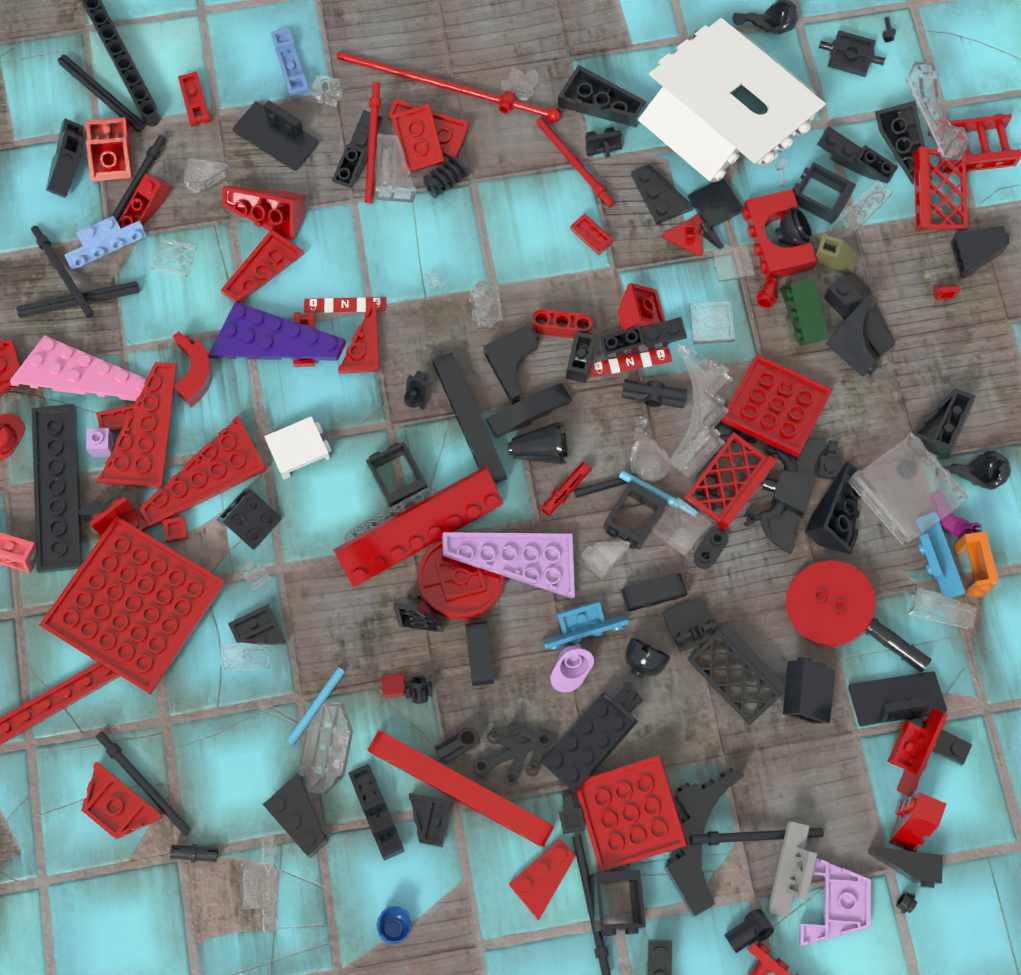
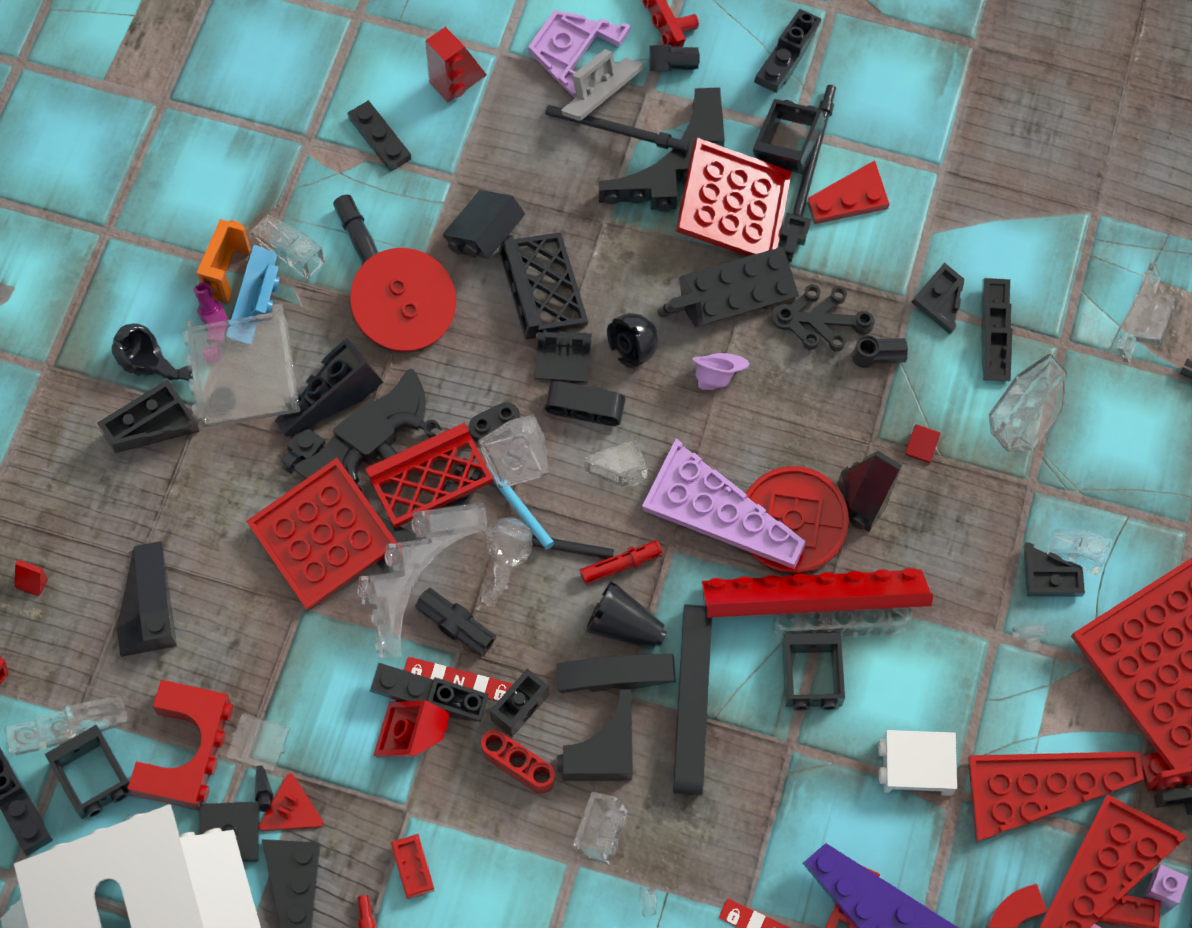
camera: 155 degrees left, 5 degrees down
(175, 529) = (1107, 734): red plate -> none
(249, 518) = (1015, 708): black bracket -> none
(297, 816) = (1085, 358): black wedge -> none
(315, 706) = (1017, 464): medium azure bar -> none
(363, 352) = (781, 853): red wing -> none
(394, 925) = (1024, 217): blue hair -> none
(417, 390) = (743, 754): black hips -> none
(418, 689) = (890, 422): black gear -> none
(460, 788) = (899, 311): red beam -> none
(479, 653) = (811, 430): black beam -> none
(583, 622) = (682, 405): dark azure bracket -> none
(646, 498) = (570, 512): black window -> none
(712, 322) = (333, 675): clear plate -> none
(768, 293) = (242, 678): red cone -> none
(794, 228) = (158, 737): black piece -> none
(805, 311) = (215, 630): dark green wedge -> none
(836, 254) = (132, 681): olive slope -> none
(851, 340) = (188, 563): black arch -> none
(896, 698) = (394, 182): black bracket -> none
(906, 902) = (505, 16): black plate -> none
(914, 748) = (408, 126): red bracket -> none
(915, 866) = (481, 42): black slope -> none

